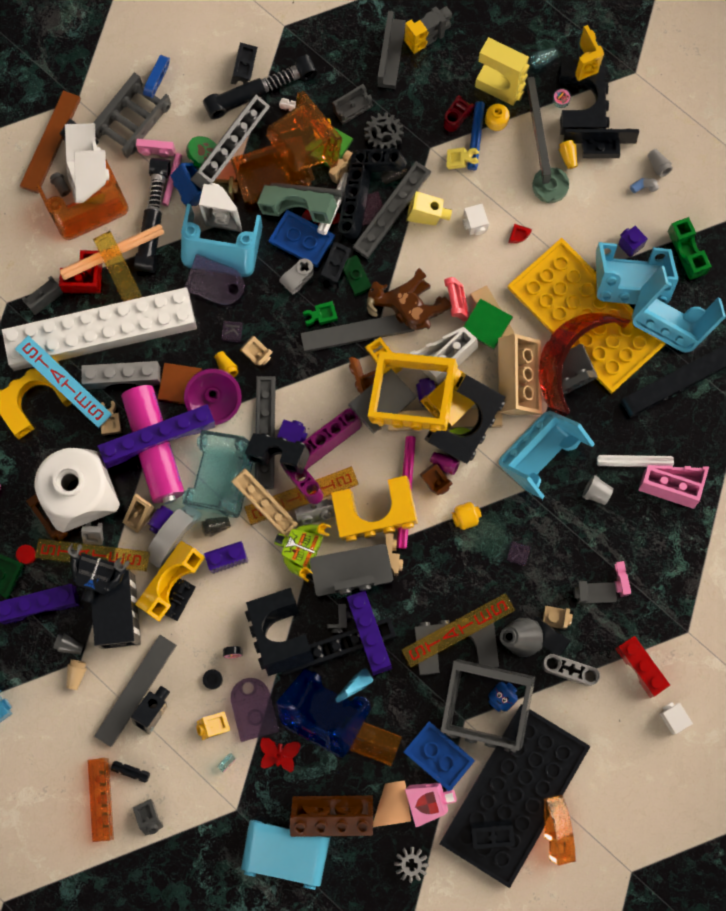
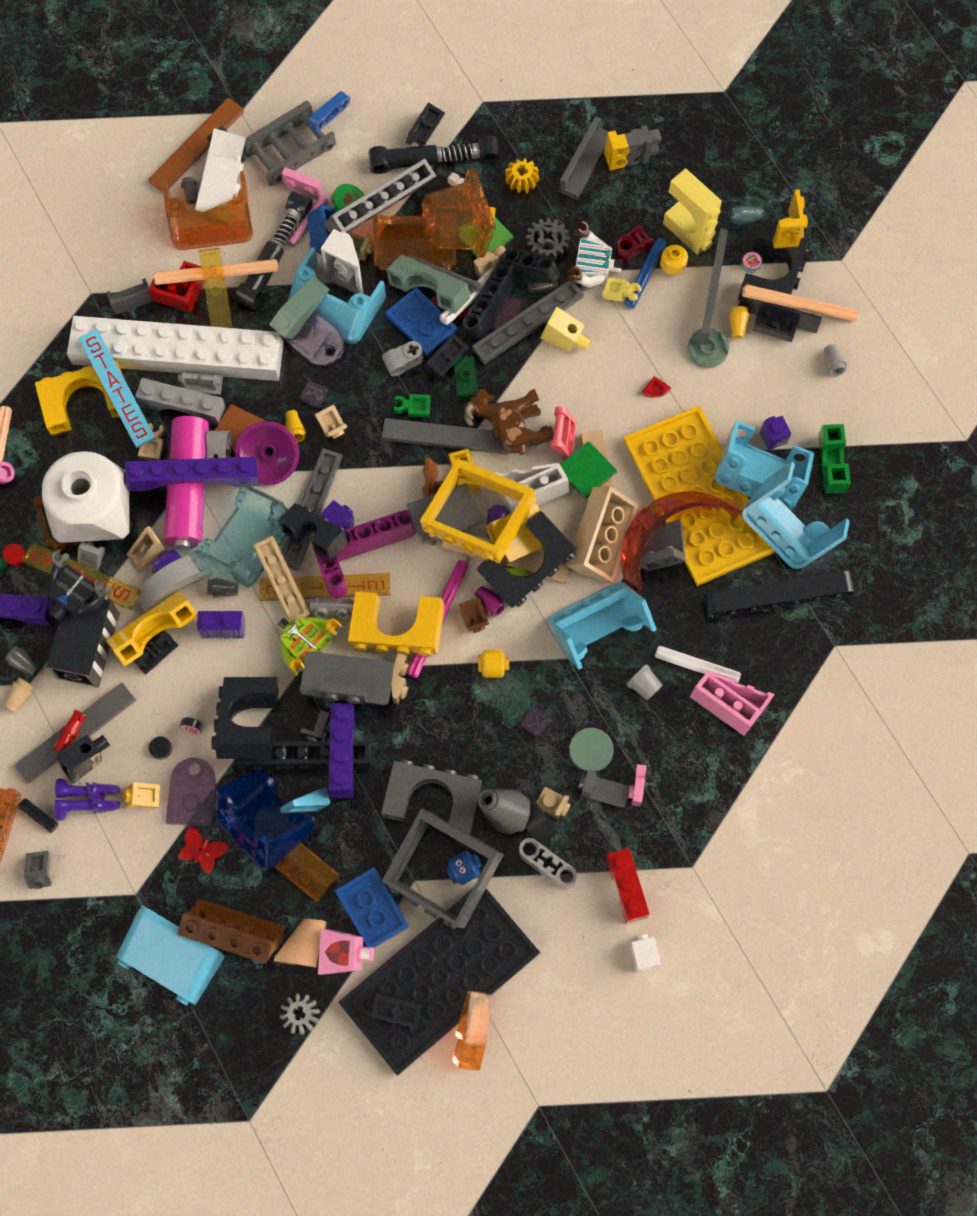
camera: 15 degrees right, 5 degrees down
(132, 352) = (201, 382): none -> light grey hinge
(132, 692) = (70, 731): none -> red pin
(168, 403) = (218, 444): none -> light grey piece
(172, 736) = (95, 792): none -> dark purple piece
(196, 261) = (299, 308): none -> sand green slope
(226, 762) = (142, 839): clear light blue tile -> none
(335, 79) = (521, 175): none -> yellow gear
(352, 104) = (524, 201): dark grey hinge -> none
(428, 138) = (592, 260): none -> torso
(458, 630) = (438, 779): clear yellow tile -> none
(475, 220) = (613, 358): white brick -> none
(572, 562) = (591, 750): none -> sand green tile
(615, 122) = (799, 303): none -> light nougat axle
(644, 183) = (810, 376): arm -> none

